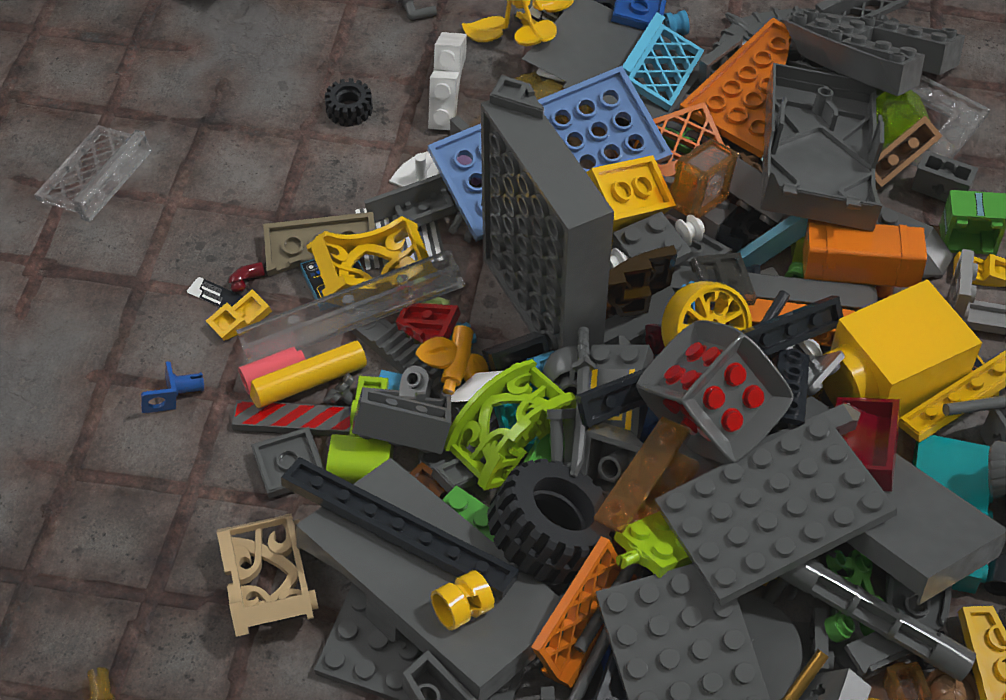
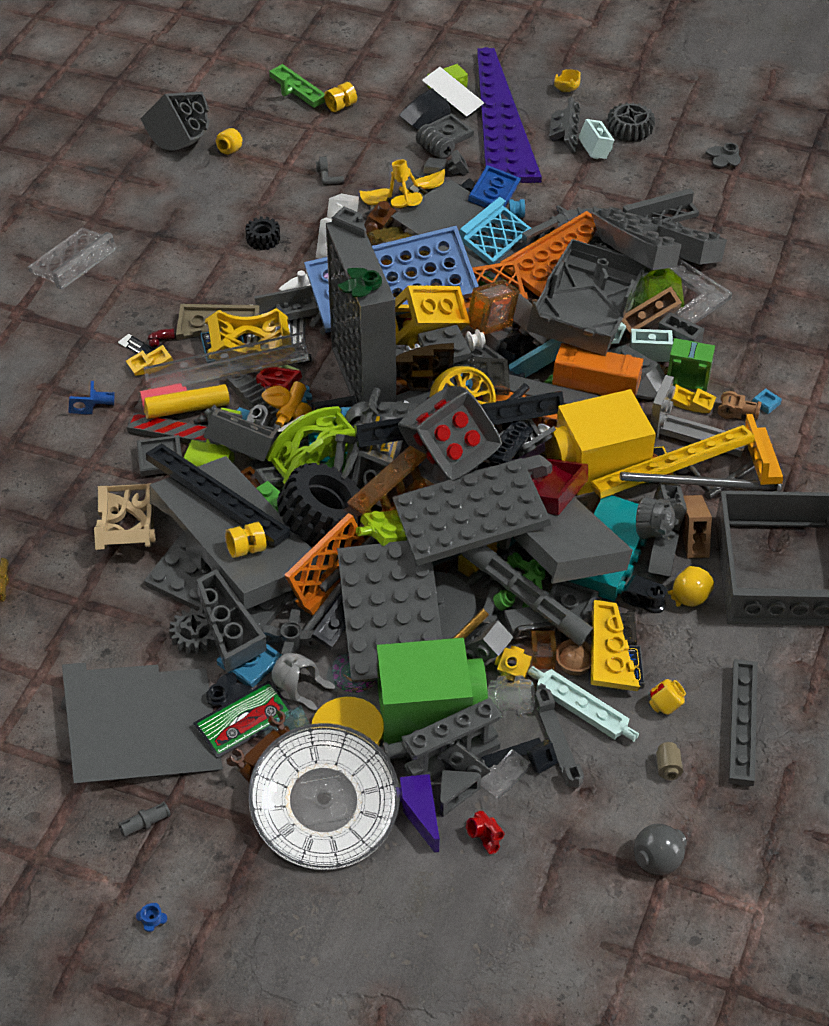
camera: 10 degrees right, 5 degrees down
(504, 61) = (379, 217): none -> reddish brown torso
(559, 191) = (361, 282): none -> dark green plate
(914, 197) = (653, 343): none -> light aqua brick

